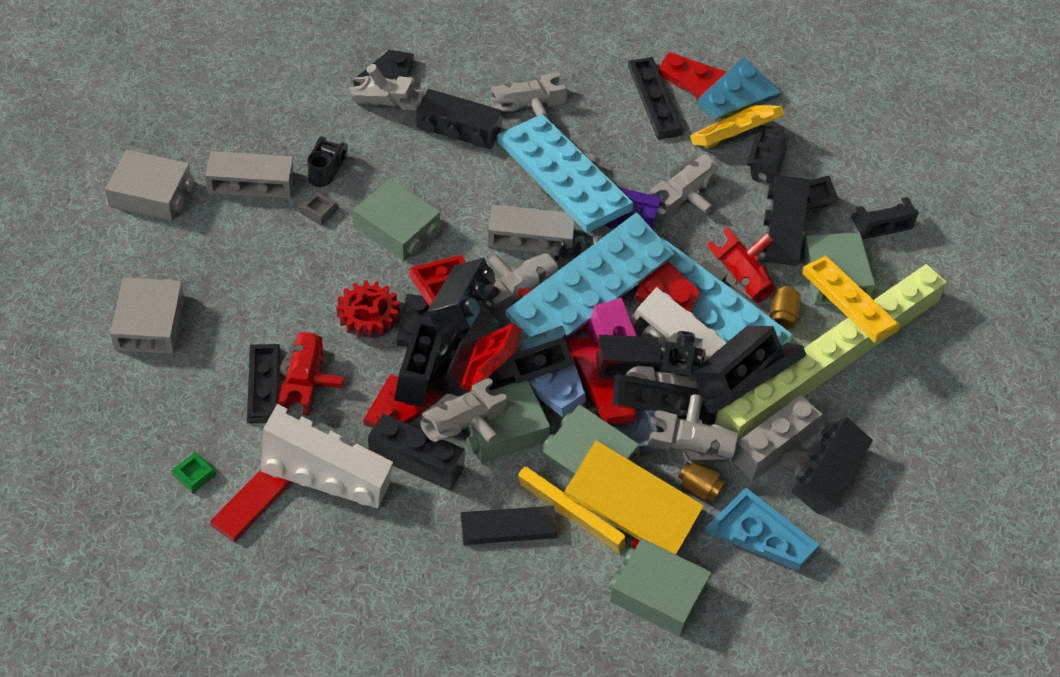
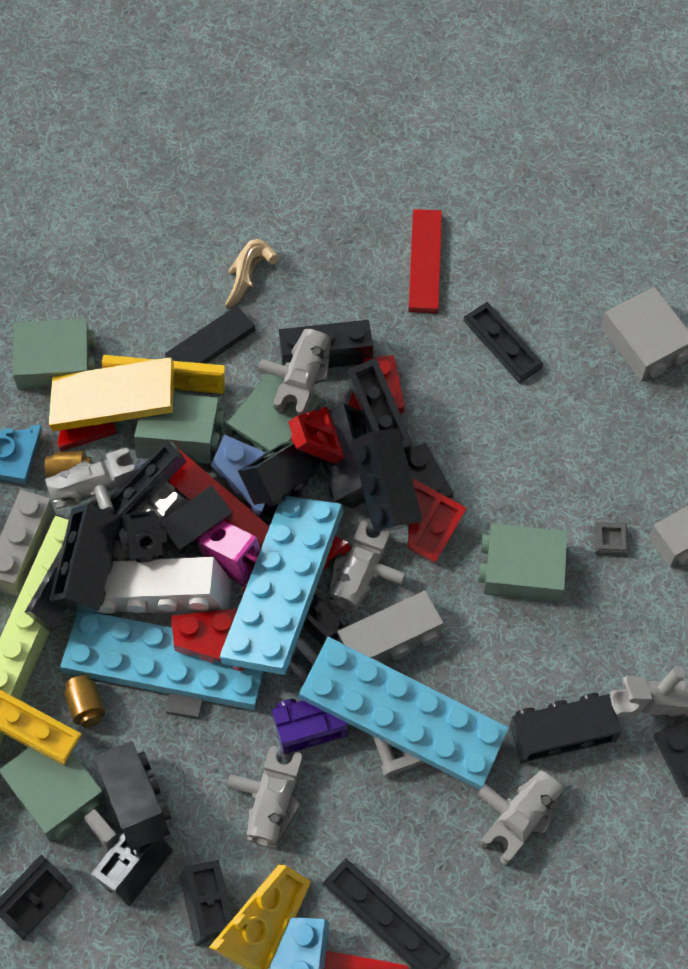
camera: 150 degrees right, 10 degrees up
(194, 472) = (489, 241): green tile -> none
(303, 372) = (480, 366): red piece -> none
(322, 460) = (389, 286): white wedge -> none
(325, 161) = (650, 594): black piece -> none
(368, 309) = (482, 462): red gear -> none
(429, 575) = (249, 257): none -> tan piece
(742, 266) = (153, 723): red piece -> none
(815, 221) = (101, 829): none -> light grey tile

